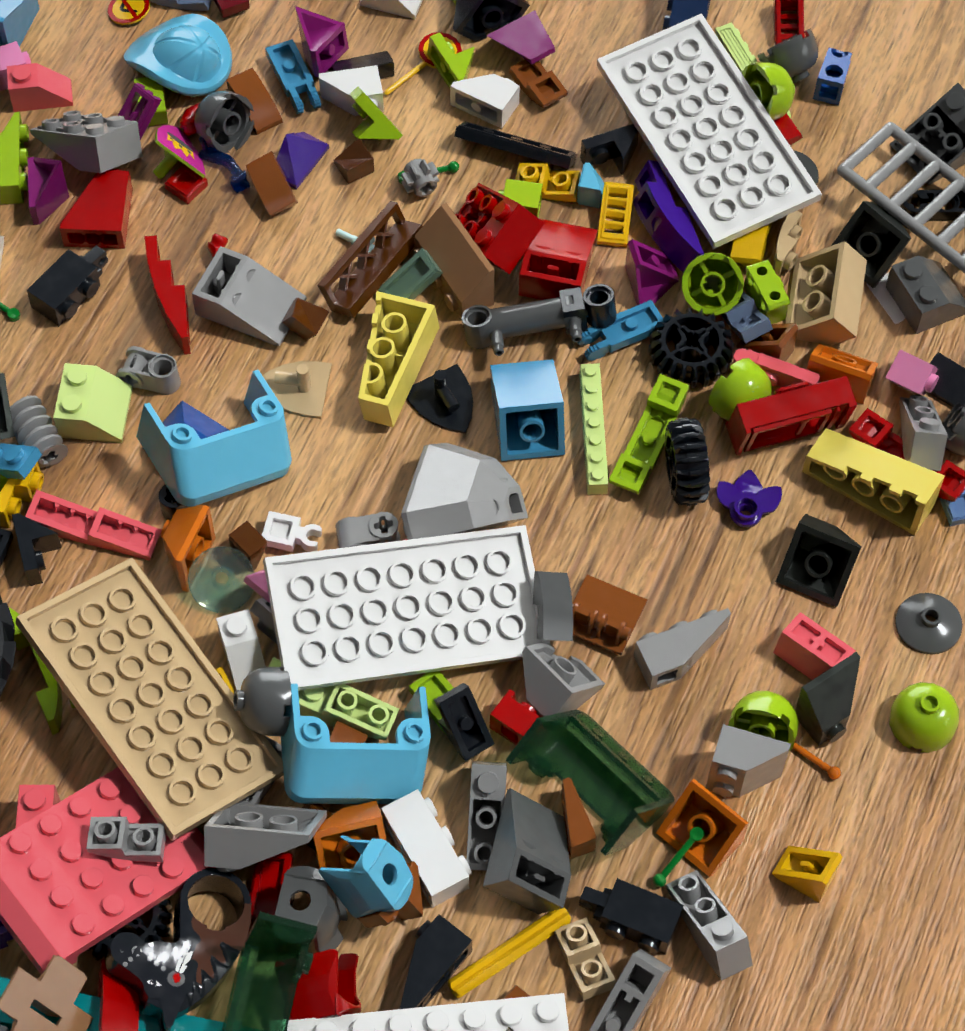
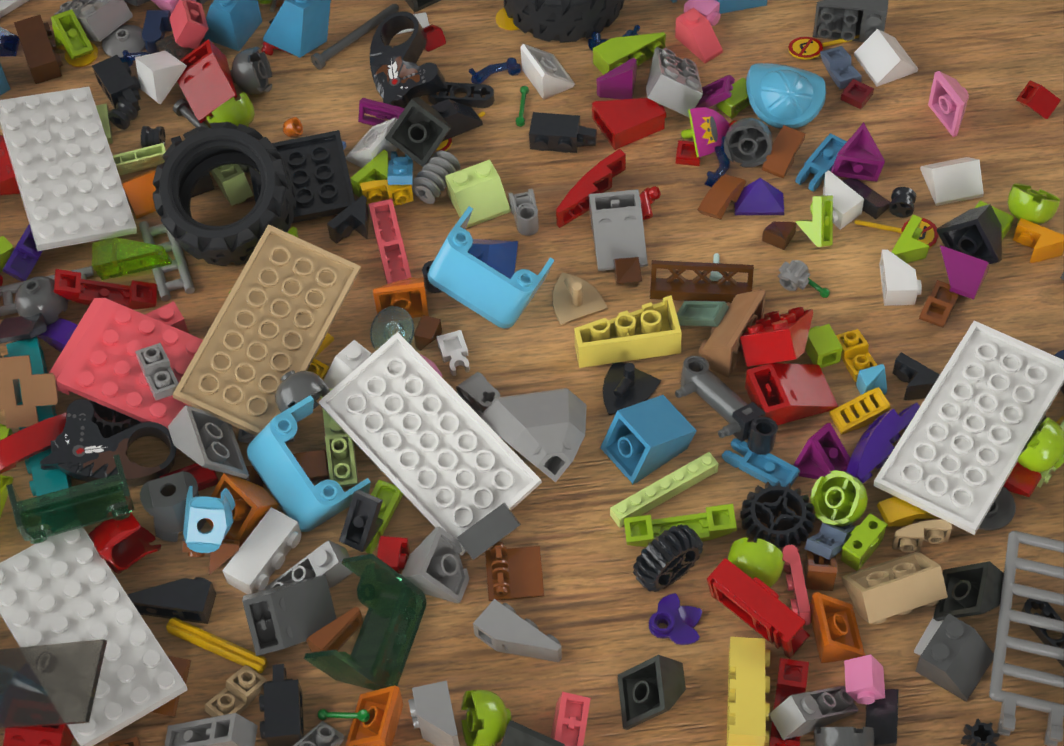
camera: 65 degrees right, 5 degrees down
(397, 39) = (902, 202): none -> black wheel
(516, 144) = (870, 318): black tile -> none

